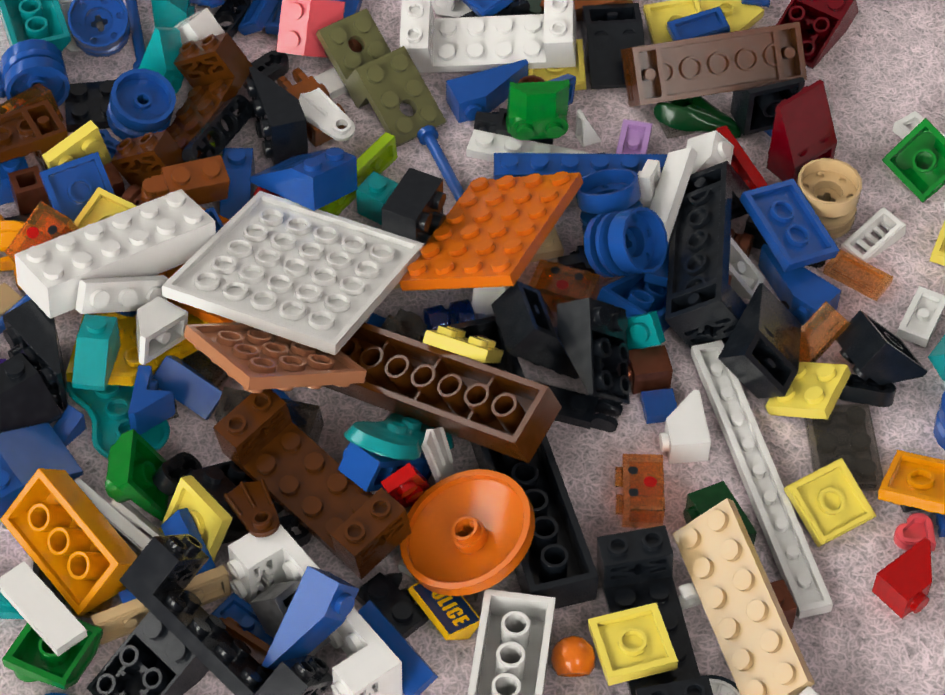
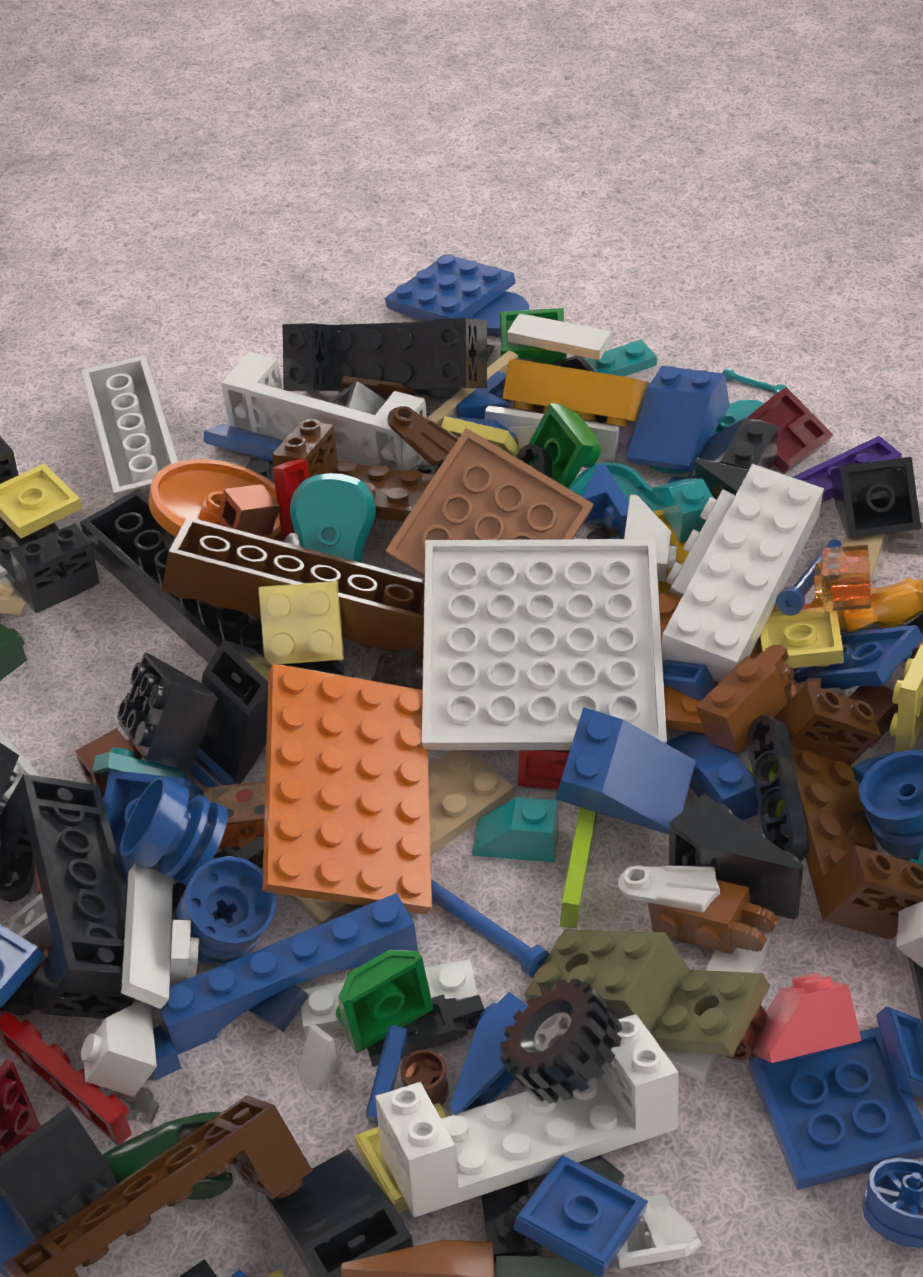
camera: 160 degrees right, 5 degrees down
(272, 71) = (839, 961): black beam -> none
(313, 614) = (311, 378): slope -> none
(415, 206) = (455, 775): black brick -> none
(450, 483) = (249, 510): none -> copper brick
(457, 26) = (561, 1041): none -> black wheel
(573, 657) = (90, 487): orange piece -> none
(634, 137) = (243, 1062): lavender plate -> none
(642, 490) = (74, 642): clear orange brick -> none
(658, 404) = (79, 737): blue tile -> none
(686, 432) = (44, 714): white slope -> none

